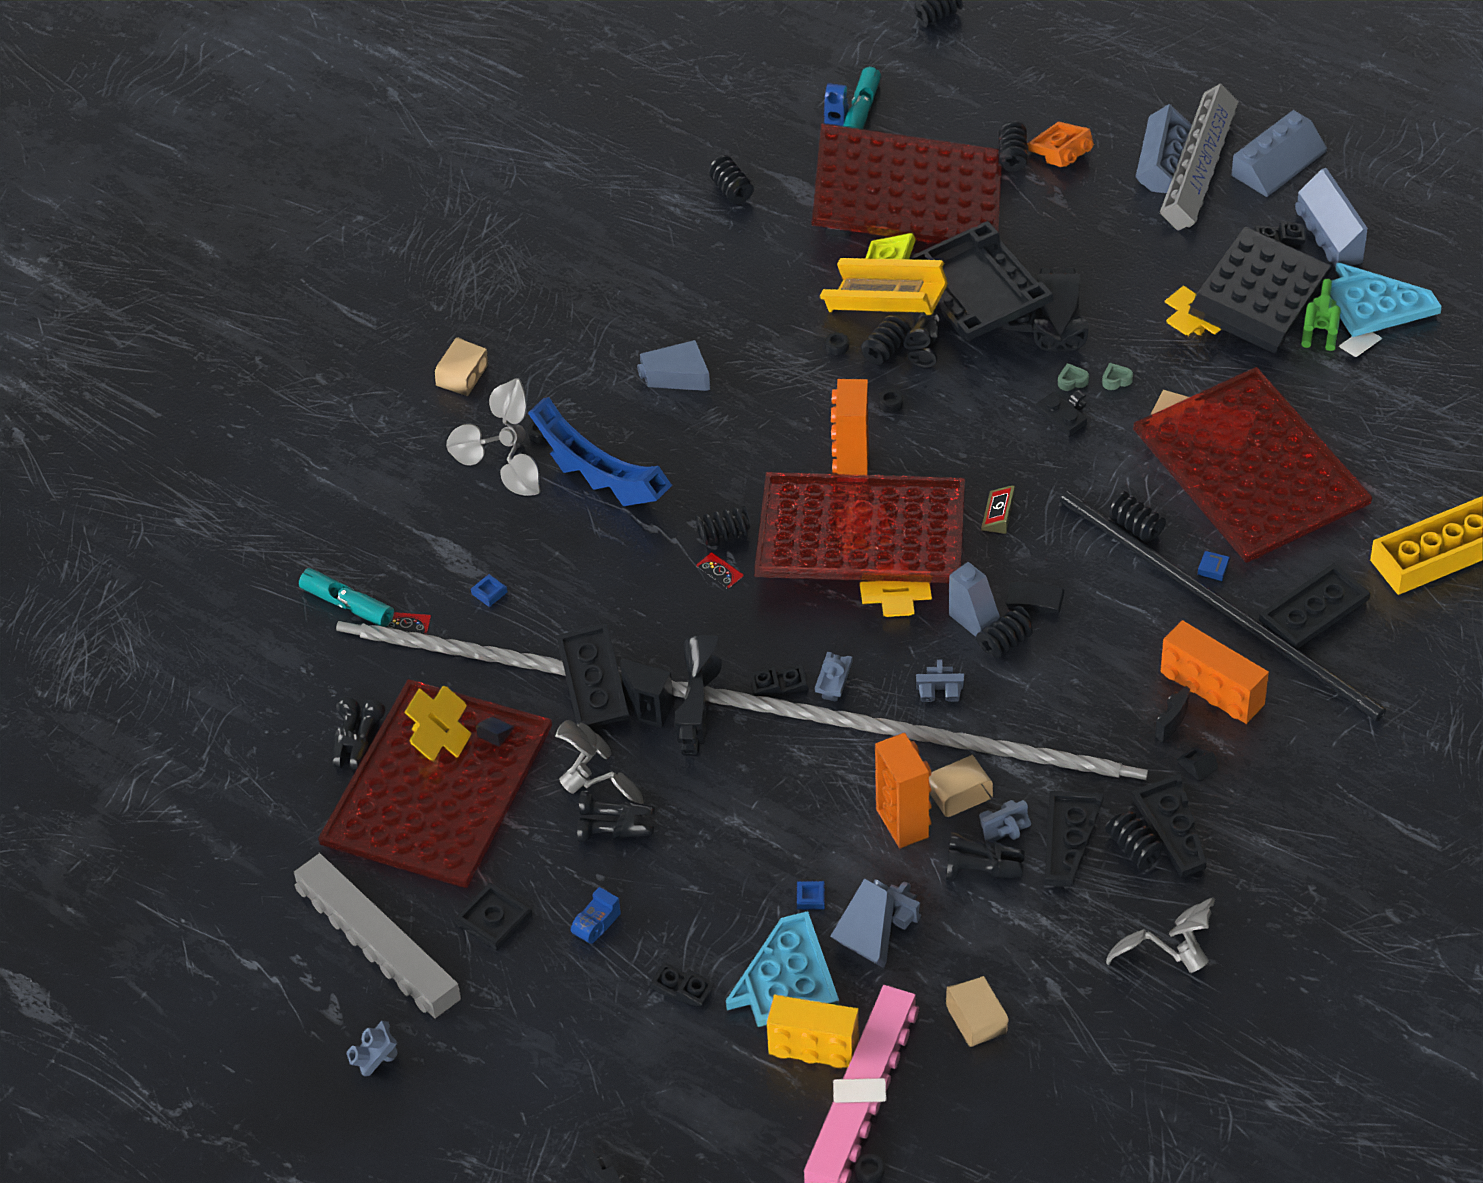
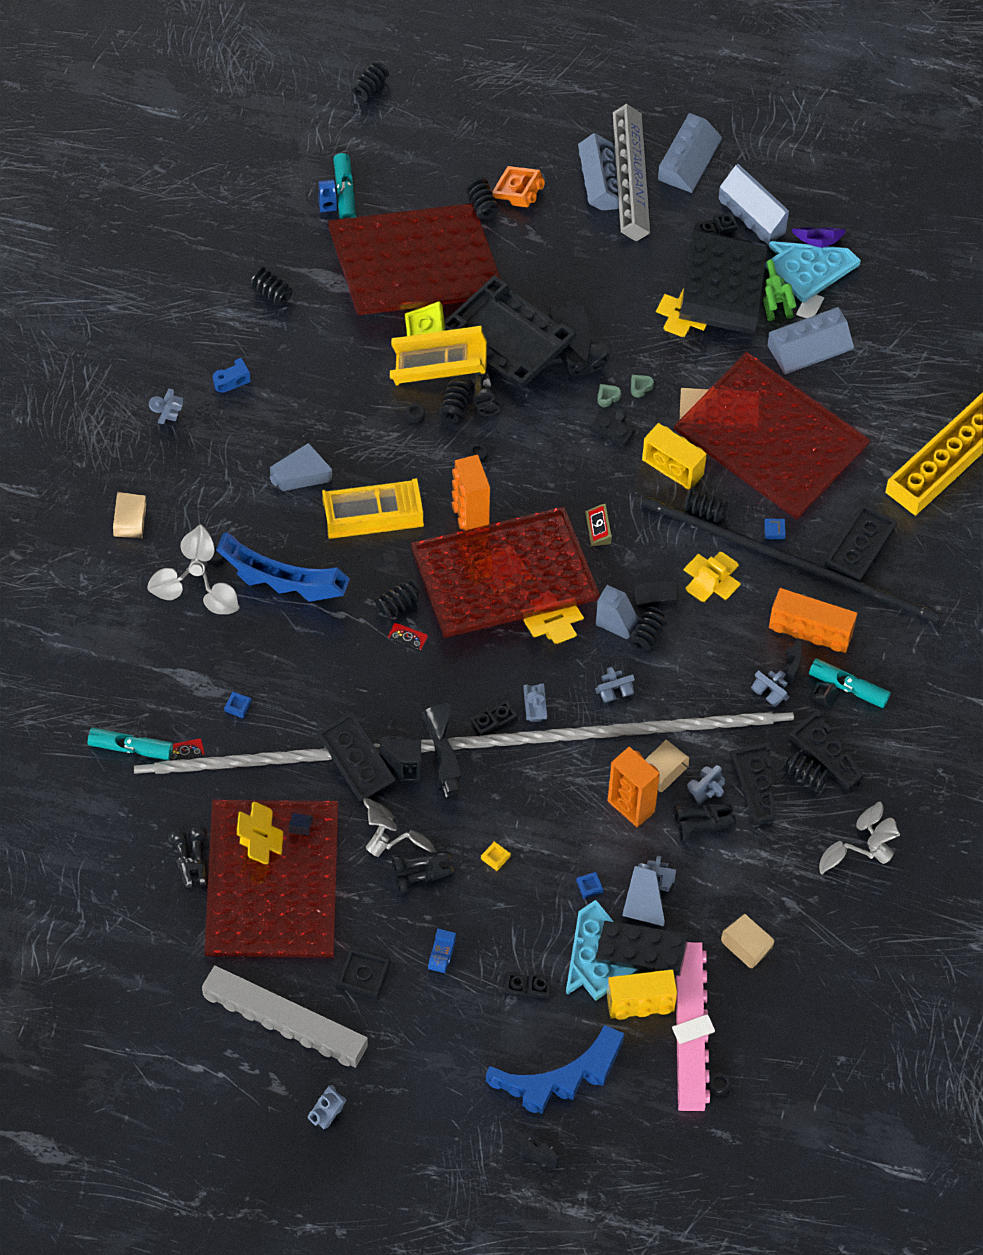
camera: 25 degrees left, 10 degrees up
(556, 268) = (168, 406): none -> sand blue hips
(643, 258) = (231, 377): none -> blue leg
(678, 1106) = (565, 1081): none -> blue arch
(711, 831) = (495, 856): none -> yellow tile
(738, 427) = (373, 509): none -> yellow piece
(837, 978) = (642, 947): none -> black plate
(1106, 594) = (707, 576): none -> yellow piece
(1119, 454) = (674, 456): none -> yellow brick
(1124, 727) = (763, 682): none -> sand blue hips
(1245, 764) = (860, 688): none -> teal piece
(1343, 375) = (810, 340): none -> sand blue slope
(1401, 271) = (818, 237): none -> dark purple brick

